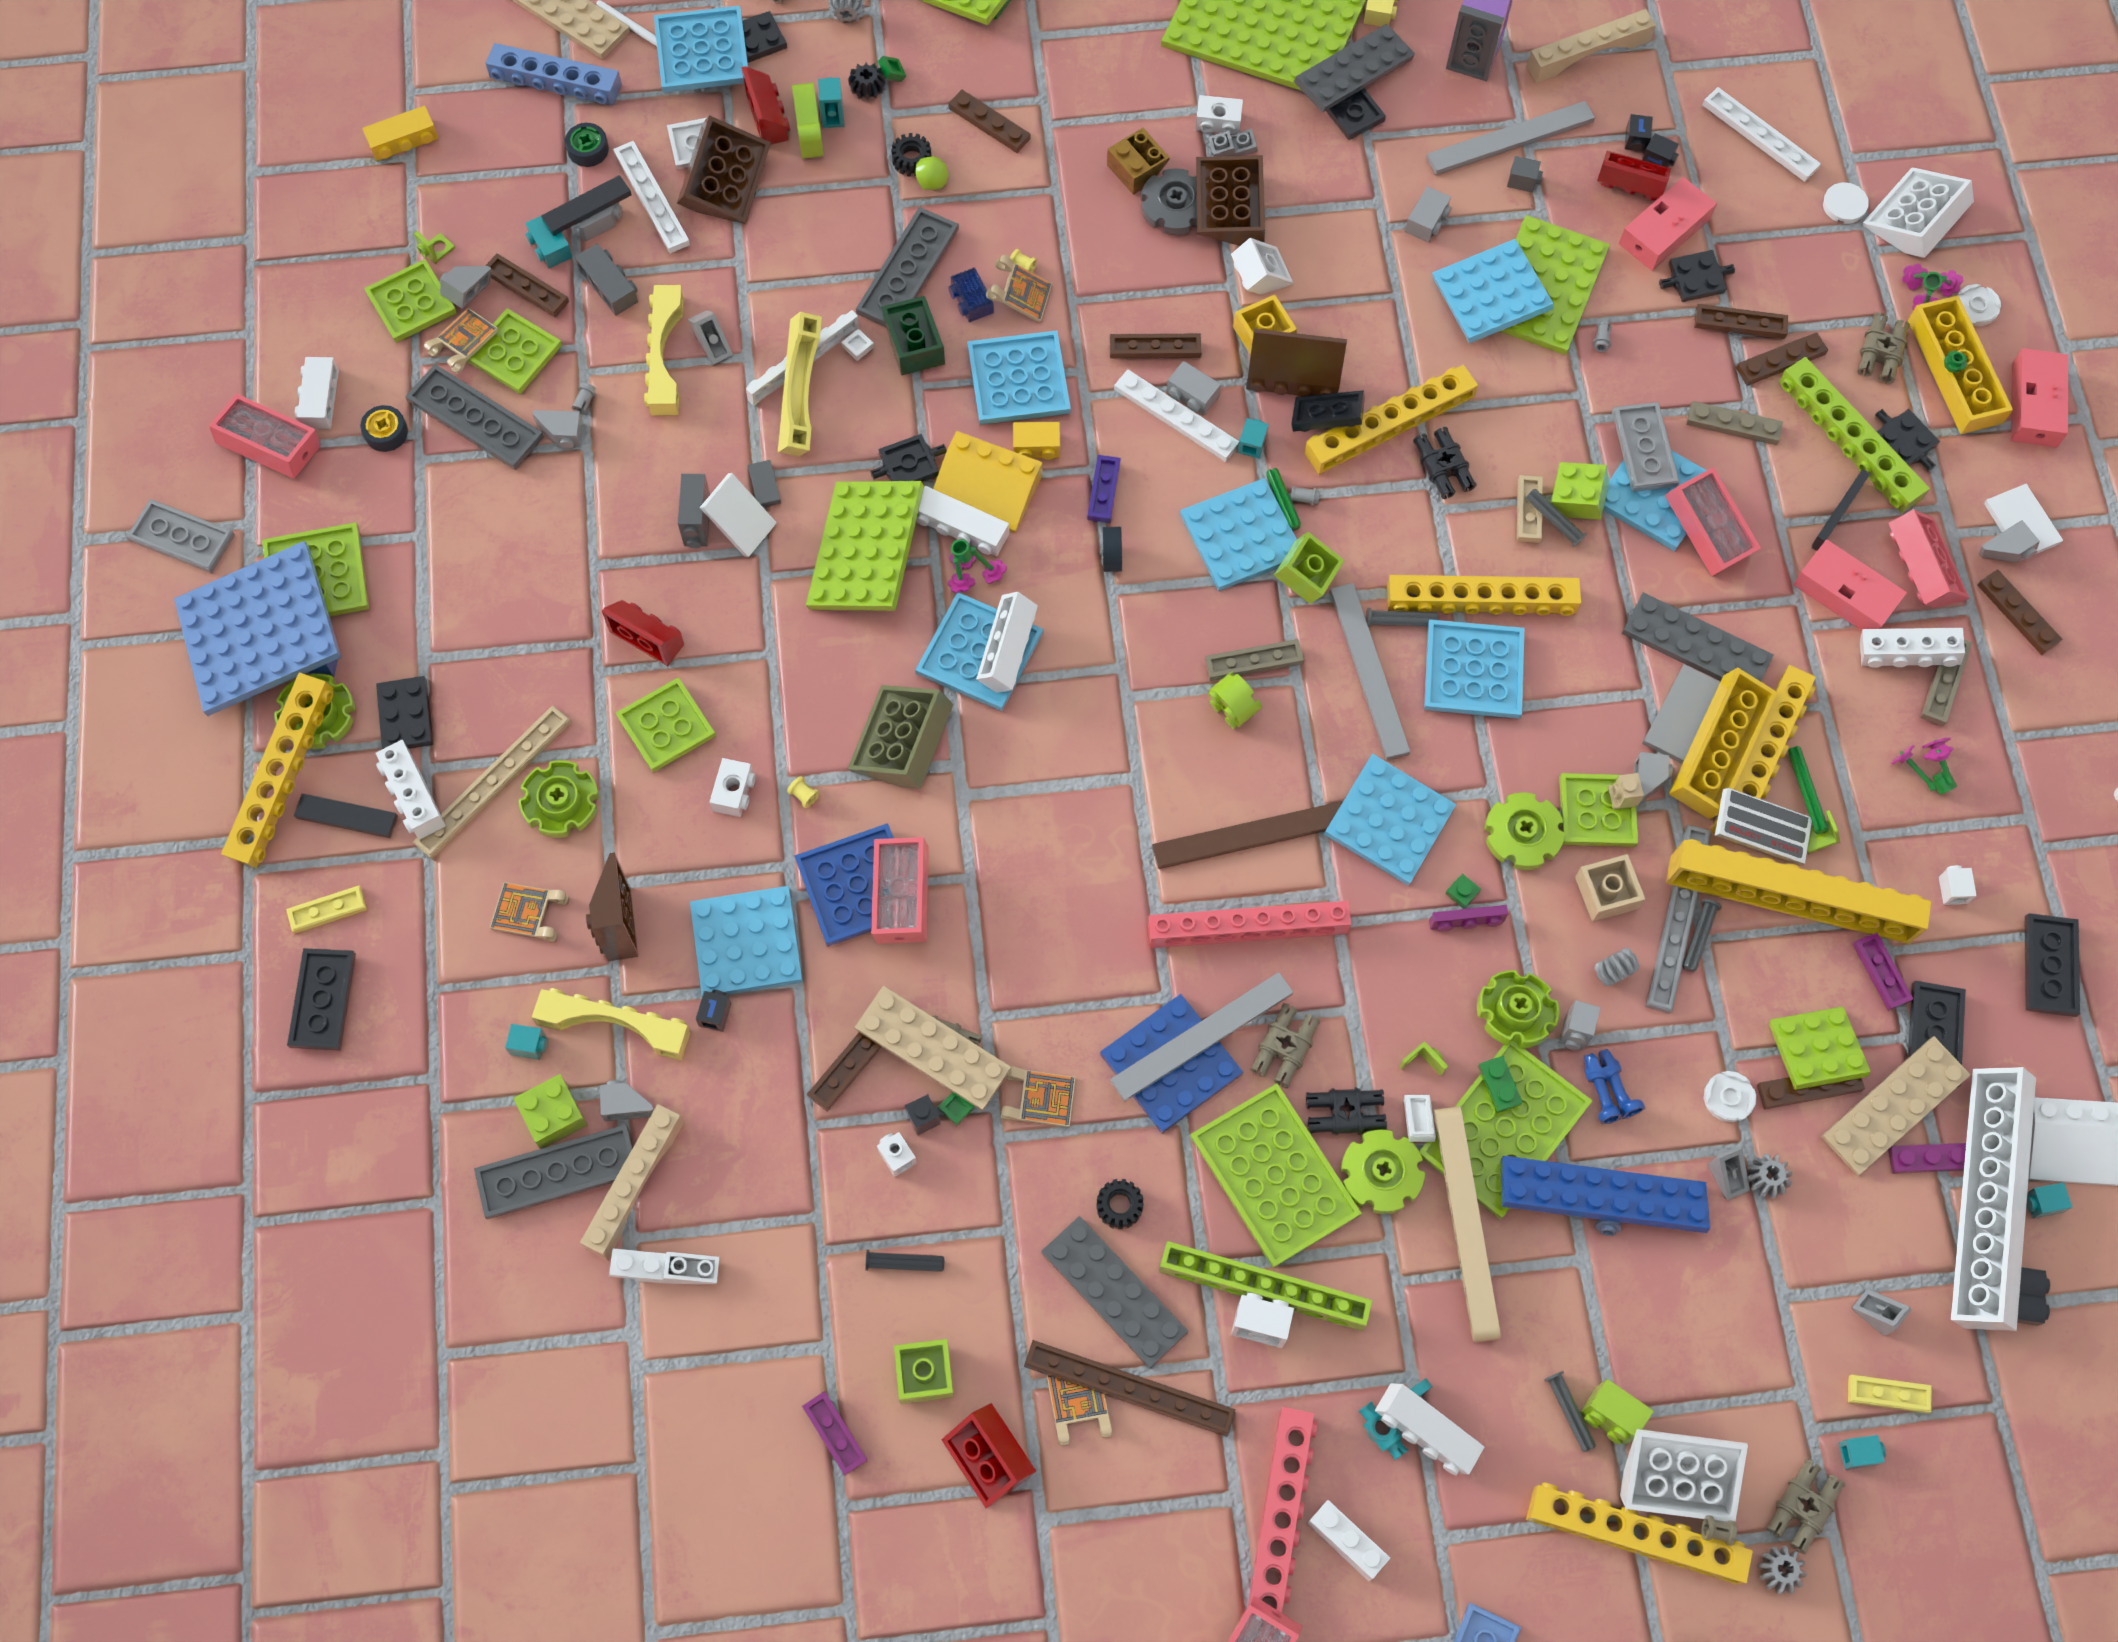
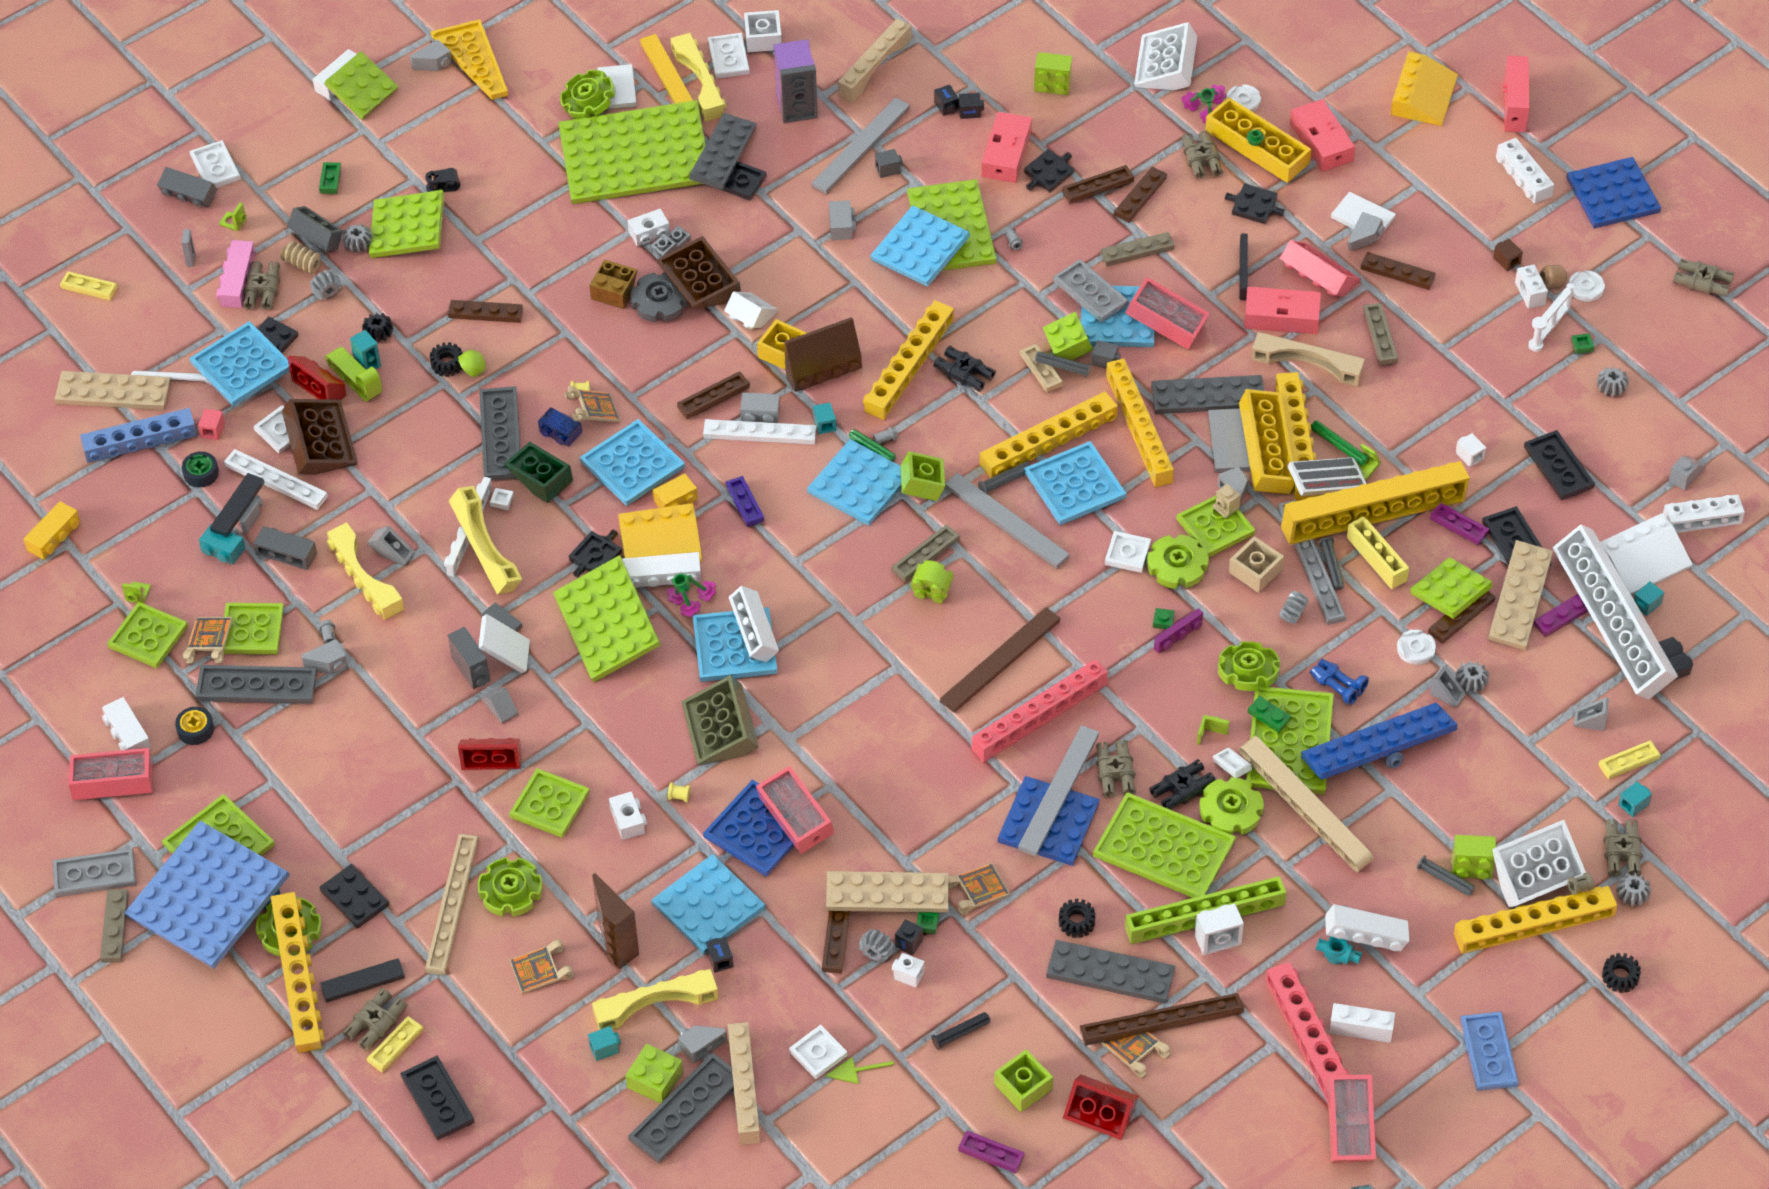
camera: 30 degrees left, 15 degrees down
(157, 607) = (114, 925): none -> dark tan plate
(313, 864) = (374, 1019): none -> dark tan pin
(410, 790) = (400, 936): white brick -> none
(464, 283) = (182, 602): light grey slope -> none
(527, 285) = (227, 582): reddish brown plate -> none
(631, 100) = (211, 424): none -> coral brick
(664, 1268) = (806, 1121): white slope -> none
(695, 580) = (500, 704): none -> light grey slope
(736, 1192) = (818, 1052): none -> white plate
(754, 1233) = (847, 1070): none -> lime piece
(879, 1105) = (876, 945): none -> light grey gear
(892, 68) = (390, 310): green plate -> none
(1112, 549) = (780, 533): black wheel -> none
(1328, 411) = (864, 374): black plate -> none
(1390, 819) = (1085, 600): medium azure plate -> none
(1477, 786) = (1127, 551): none -> white plate
(1579, 1025) = (1294, 652): light grey brick -> none
(1594, 637) = (1139, 423): none -> yellow brick
(1611, 533) = (1104, 353): none -> dark grey brick
(1633, 175) = (963, 127): red slope -> none
(1760, 954) = (1377, 552): none -> light yellow brick
(1761, 134) = (1015, 59): white plate -> none
(1776, 163) = (1053, 73): none -> lime brick
(1845, 202) = (1114, 77): white tile -> none
(1864, 438) = (1219, 216): lime brick -> none
(1875, 698) = (1343, 367): none -> tan arch
(1912, 647) = (1346, 323): white brick -> none
(1939, 752) = (1420, 393): plant -> none

